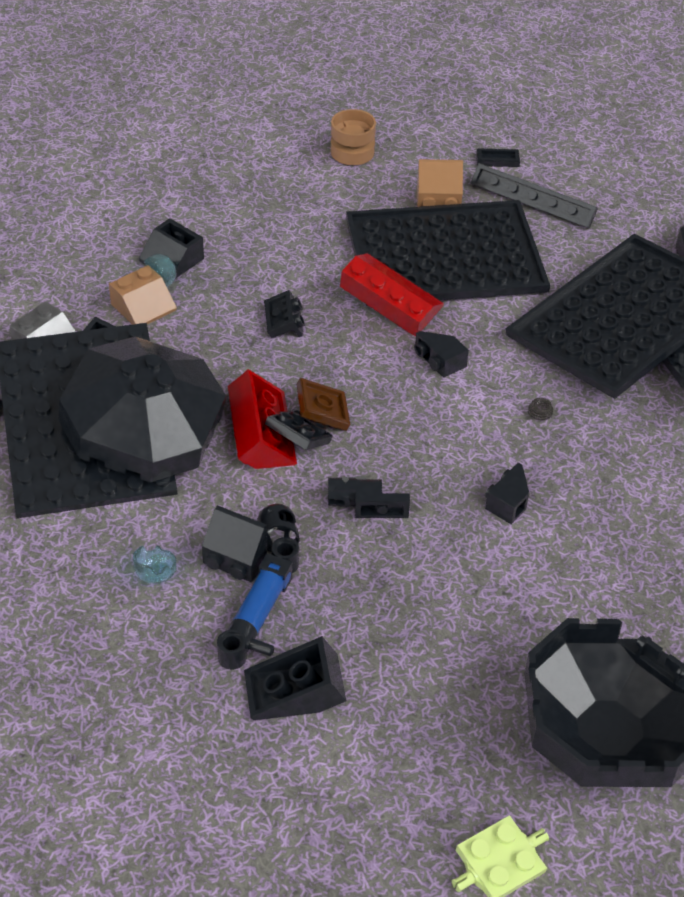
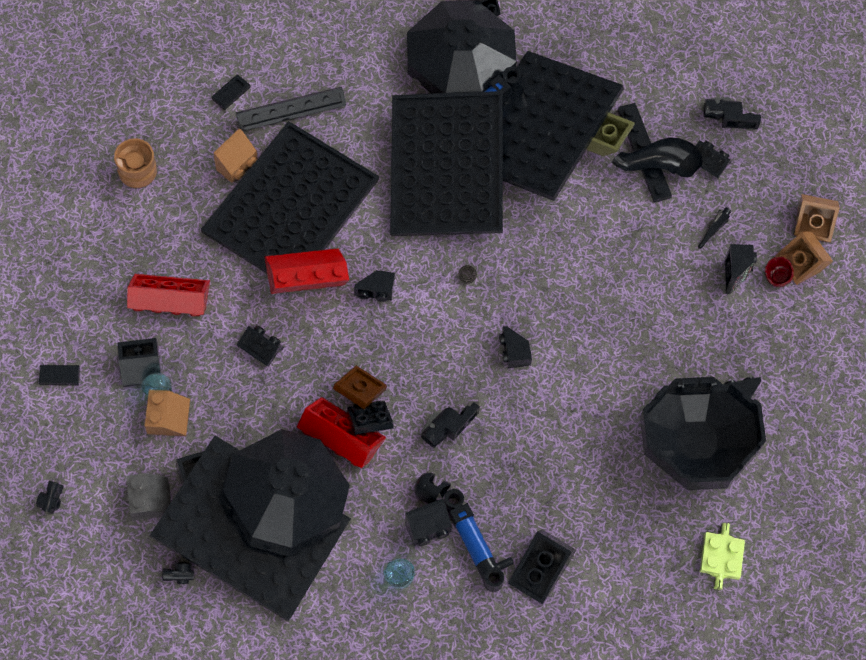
camera: 50 degrees left, 20 degrees up
(105, 219) = (59, 375): none -> black tile
(258, 231) = (168, 294): none -> red slope

